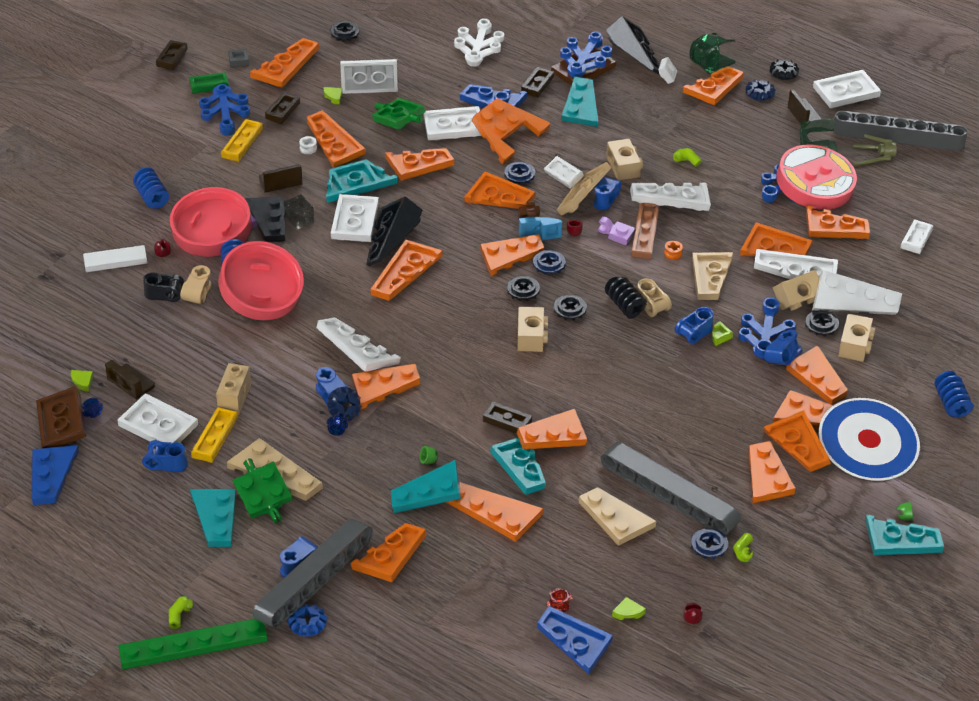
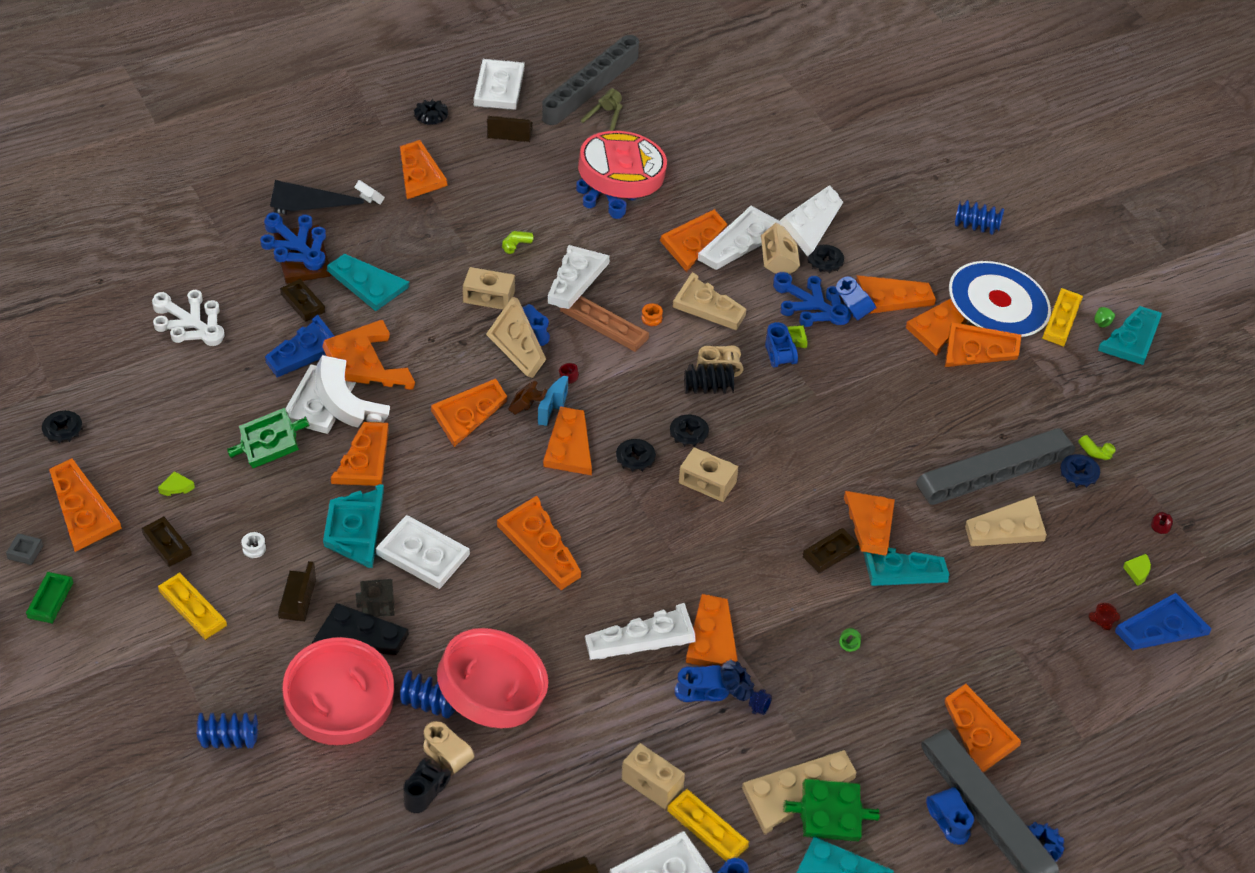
camera: 65 degrees left, 5 degrees up
(115, 258) = (328, 819): white tile -> none
(158, 248) = (343, 762): dark red hinge -> none
(223, 93) = (117, 596): blue plant -> none
(334, 140) = (268, 516): orange wing -> none
(369, 76) = (179, 436): white slope -> none
(392, 226) = (469, 522): black wedge -> none
(429, 489) = (907, 657): teal wing -> none
(450, 118) = (338, 398): none -> white arch
(496, 511) = (955, 616): orange wing -> none
(527, 172) = (441, 373): dark blue gear -> none
(555, 258) = (600, 412): dark blue gear -> none
(563, 172) = (474, 343): white plate -> none
(619, 232) = (596, 342): lavender plate -> none
(710, 56) = (372, 146): clear green piece -> none
(755, 90) = (456, 147): dark blue gear -> none
(768, 474) = (1010, 388): orange wing -> none
(821, 125) = (562, 130): clear green piece -> none
(834, 226) = (694, 187): orange wing -> none
(856, 337) = (864, 244): tan brick -> none
(886, 486) = (1062, 317): none -> yellow tile
(917, 236) = (748, 140): white plate -> none

